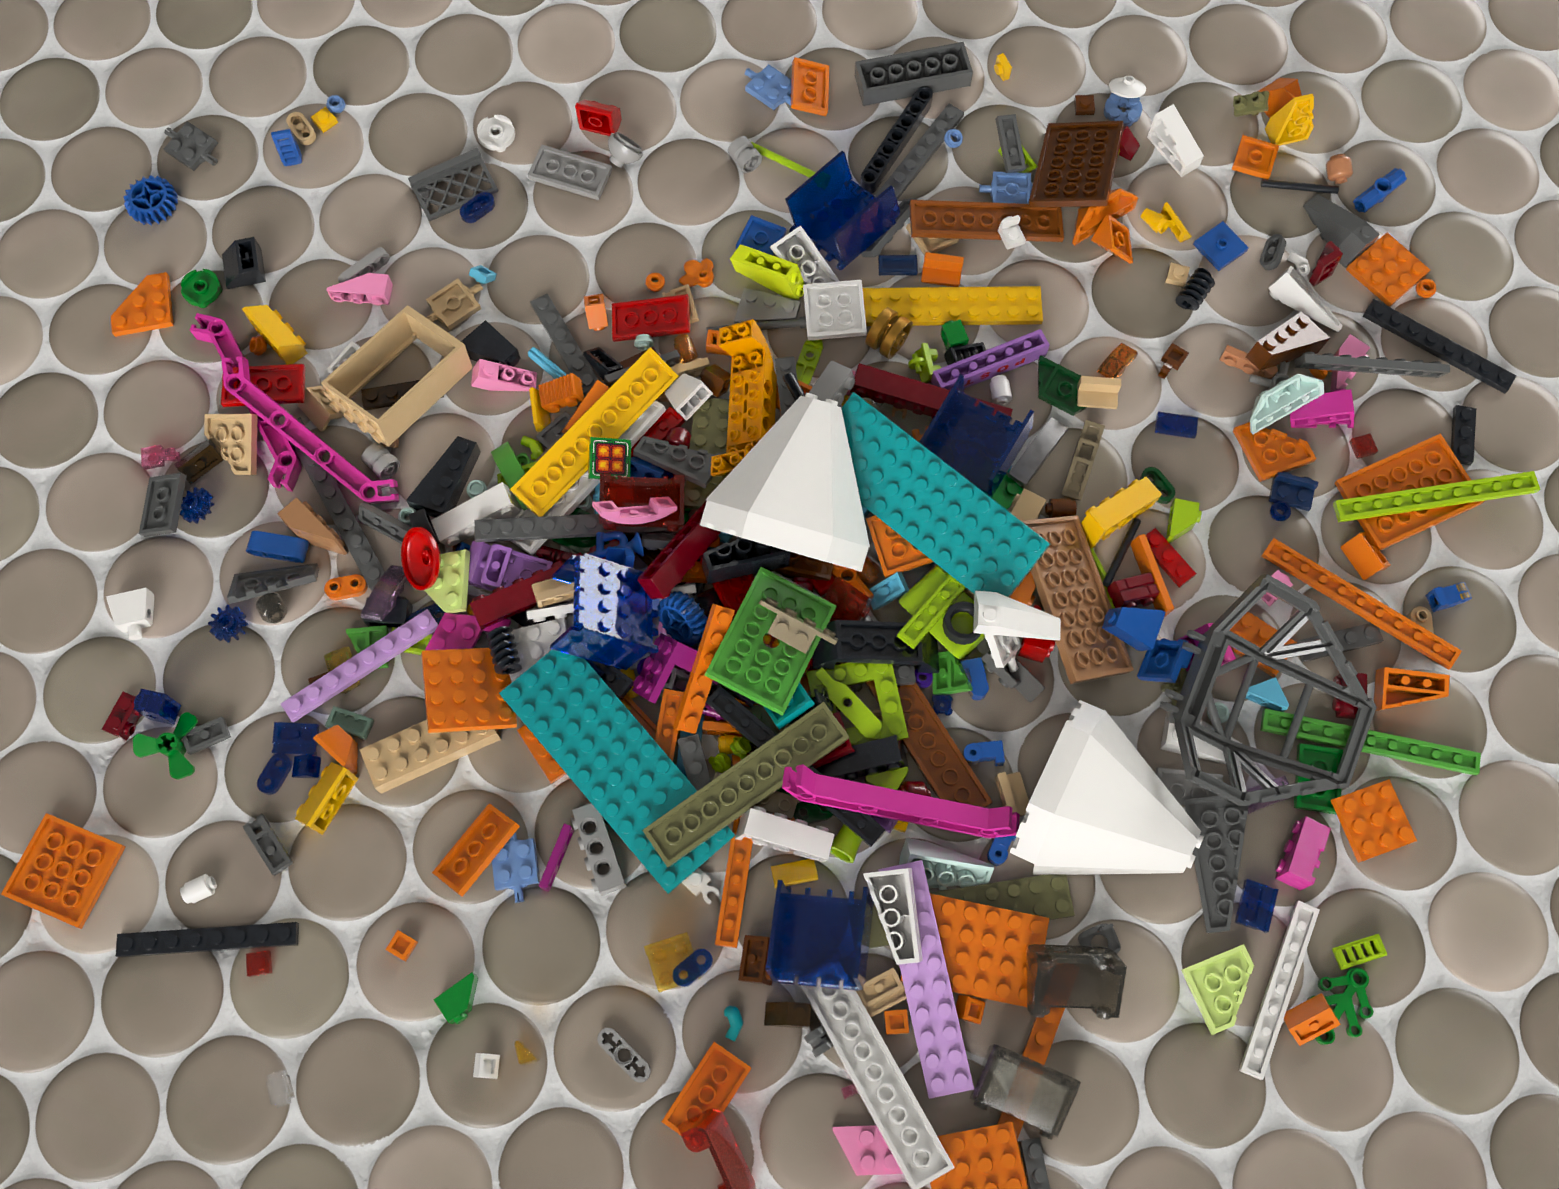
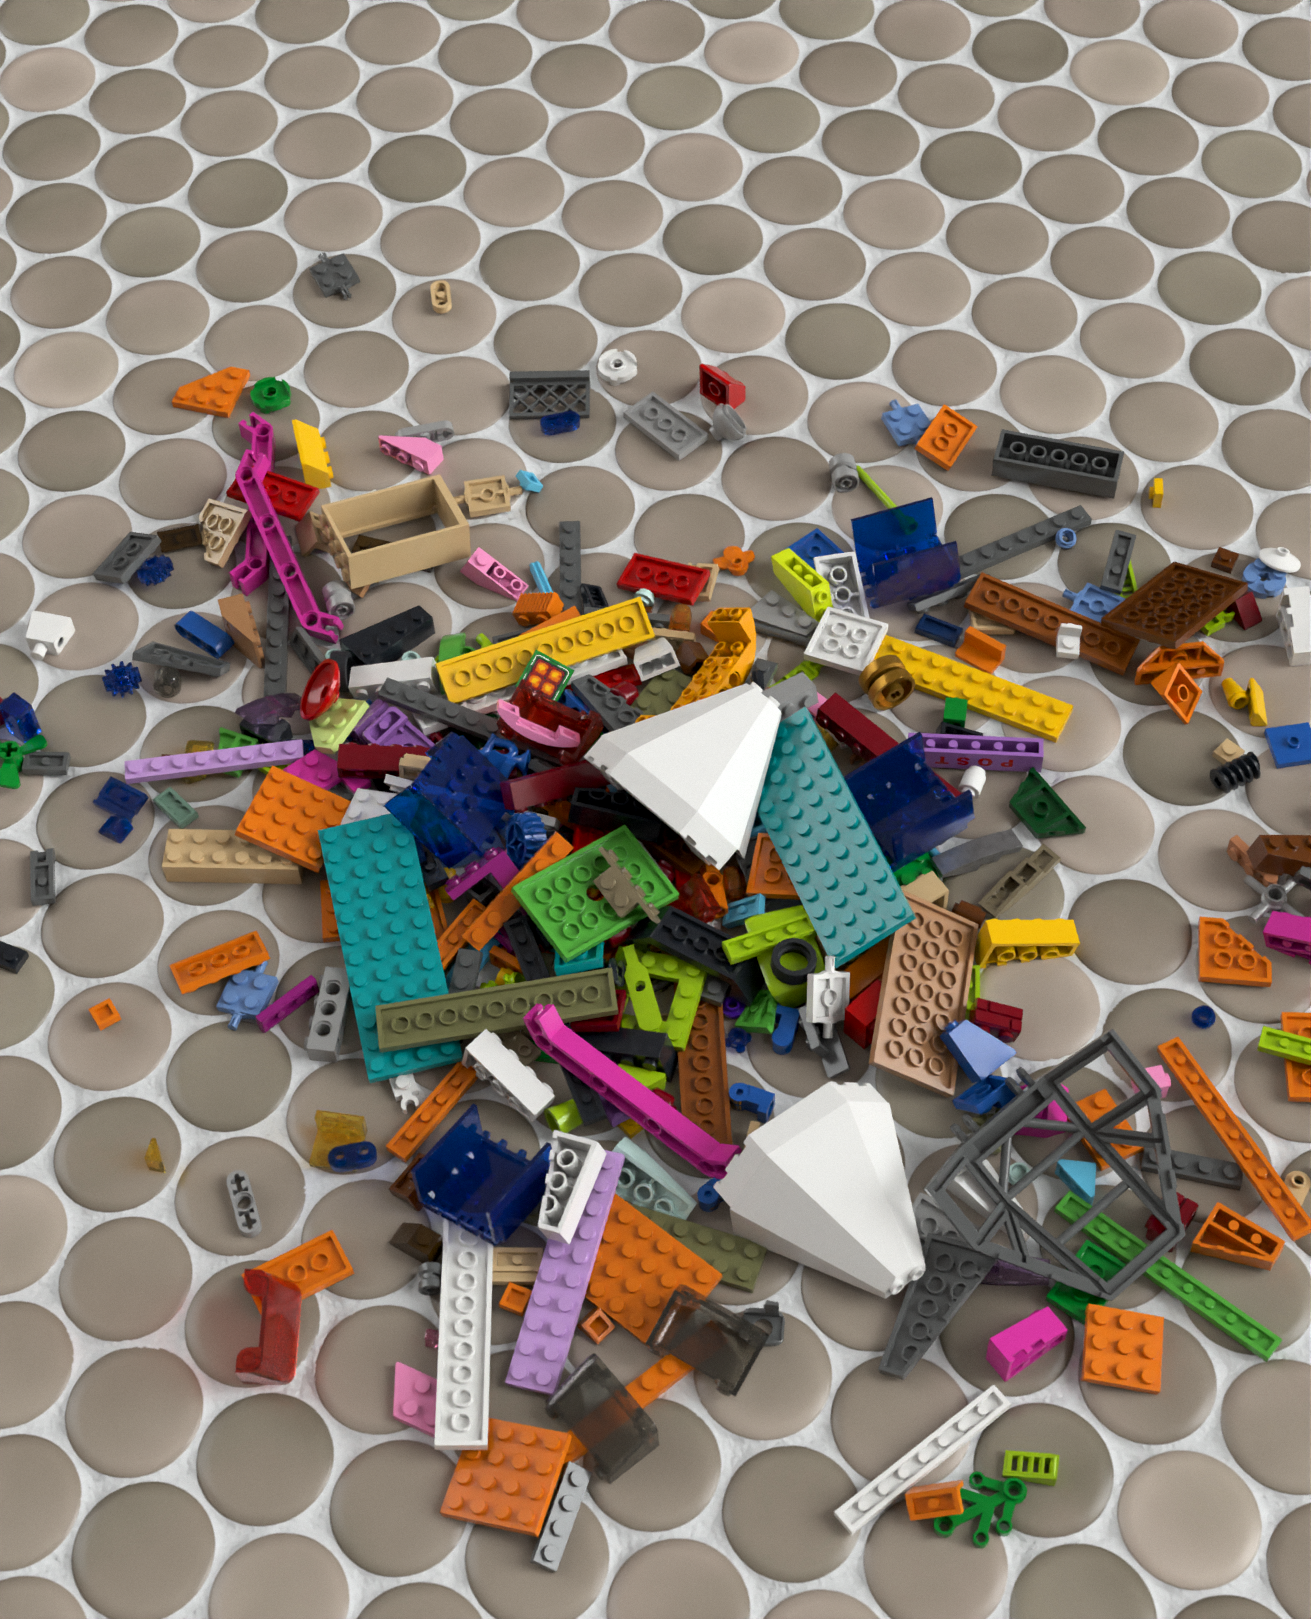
camera: 30 degrees right, 15 degrees down
(150, 200) = (272, 306): blue gear -> none
(156, 456) = (146, 516): clear pink plate -> none
(243, 263) = (320, 388): black slope -> none
(258, 345) = (290, 461): orange plate -> none
(275, 774) = (85, 822): clear blue plate -> none
(288, 148) = (417, 307): blue slope -> none
(324, 119) = (466, 297): yellow plate -> none
(326, 798) = (117, 860): yellow slope -> none
(335, 104) = (484, 288): medium blue plate -> none
(340, 747) = (154, 821): orange slope -> none
(345, 588) = (241, 693): orange plate -> none
(458, 999) = (126, 1081): green slope -> none
(486, 1066) = (115, 1150): white plate -> none
(490, 345) = (498, 542): black slope -> none
(503, 651) = (345, 798): black piece -> none
(541, 417) = (506, 622): yellow slope -> none
(596, 312) = (614, 554): orange slope -> none
(655, 286) = (688, 551): orange plate -> none
(735, 1020) = (364, 1225): teal arm -> none
(795, 872) = (502, 1123): yellow slope -> none
(814, 813) = (551, 1076): dark green plate -> none
(896, 139) = (1008, 515): black beam -> none
(923, 362) = (908, 724): lime hips -> none
(1007, 617) = (836, 969): white wedge -> none
(1098, 392) = (1071, 822): tan panel -> none
(1117, 361) = (1108, 806): clear orange slope -> none
(1121, 552) = (1010, 980): black bar -> none
(1147, 563) = (1027, 1003): orange tile -> none
(1160, 483) = (1087, 938): dark green plate -> none
(1169, 559) = (1054, 1009): red plate -> none
(1172, 358) = (1174, 826): reddish brown plate -> none
(1176, 425) = (1140, 891): clear blue plate -> none
(1182, 518) = (1089, 978): lime slope -> none
(1220, 986) = (862, 1425): yellowish green plate -> none
(1256, 906) = (946, 1370): clear blue plate -> none
(1283, 400) = (1260, 905): light aqua wedge -> none
(1293, 490) = (1229, 1003): dark blue bracket -> none
(1364, 555) = (1271, 1097): orange panel -> none

